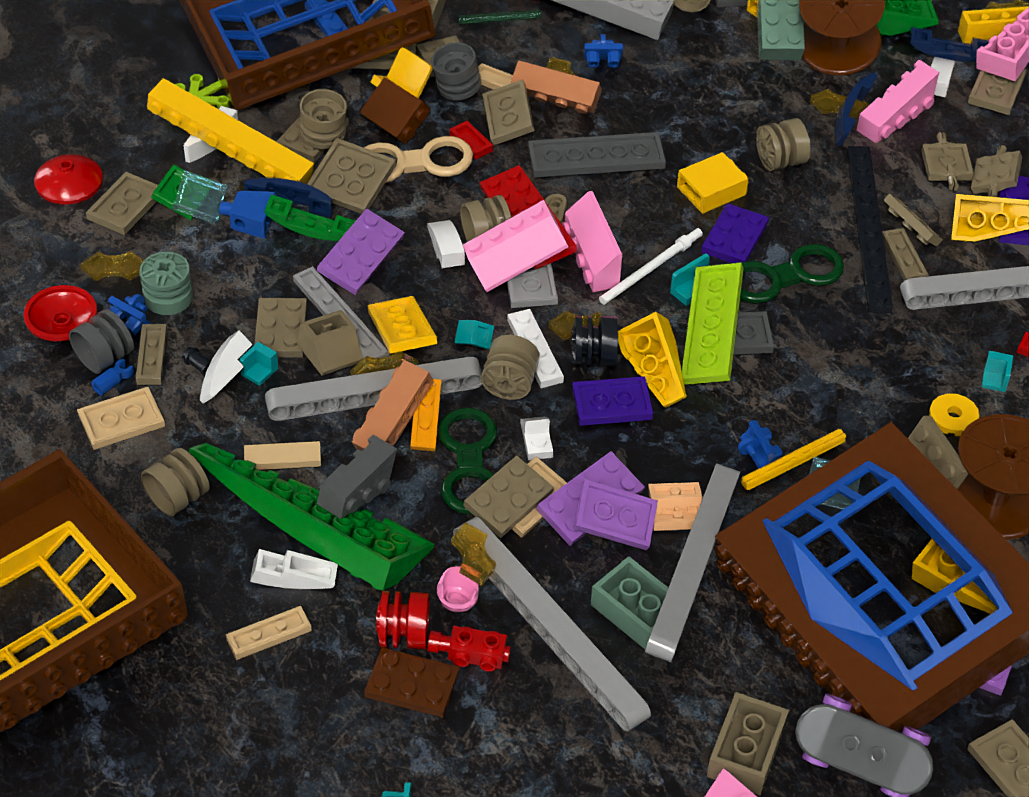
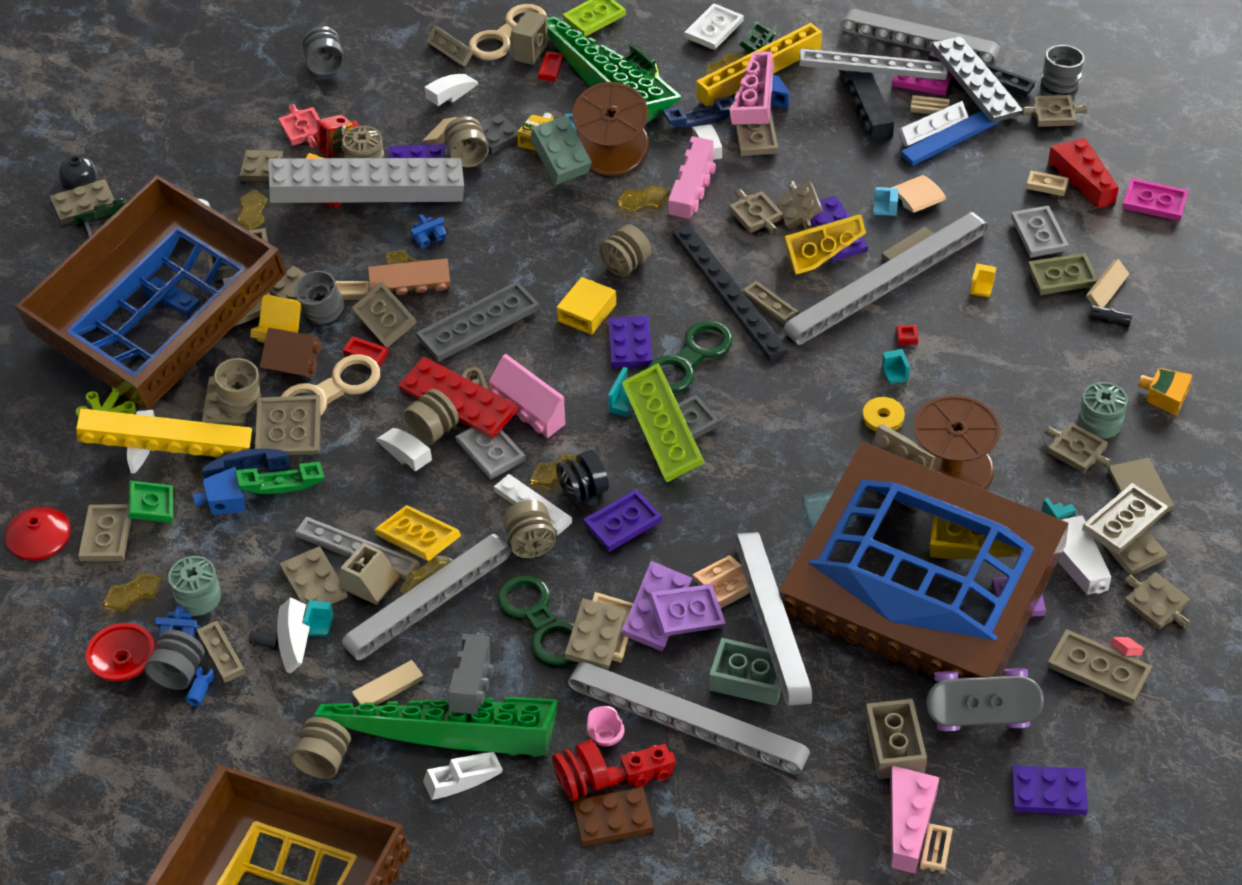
camera: 25 degrees left, 0 degrees up
(121, 418) = (230, 717): tan tile -> none
(199, 197) = (170, 499): clear light blue tile -> none
(268, 632) = (474, 833): tan tile -> none
(360, 251) = (339, 486): medium lavender plate -> none
(395, 405) = (460, 604): nougat brick -> none
(426, 420) = (484, 598): light orange tile -> none
(474, 333) = (478, 514): teal panel -> none
(476, 562) = (607, 698): clear yellow tile -> none
(503, 16) = (318, 234): clear green bar -> none
(515, 246) = (469, 426): bright pink slope -> none
(537, 437) = (581, 576): white slope -> none
(654, 354) = (633, 470): yellow wedge -> none
(681, 244) = (593, 368): white bar -> none
(757, 444) = (756, 505): blue hips -> none
(793, 459) = (788, 504): yellow axle -> none
(844, 122) = (658, 212): dark blue slope -> none
(912, 221) = (759, 272): dark tan plate -> none

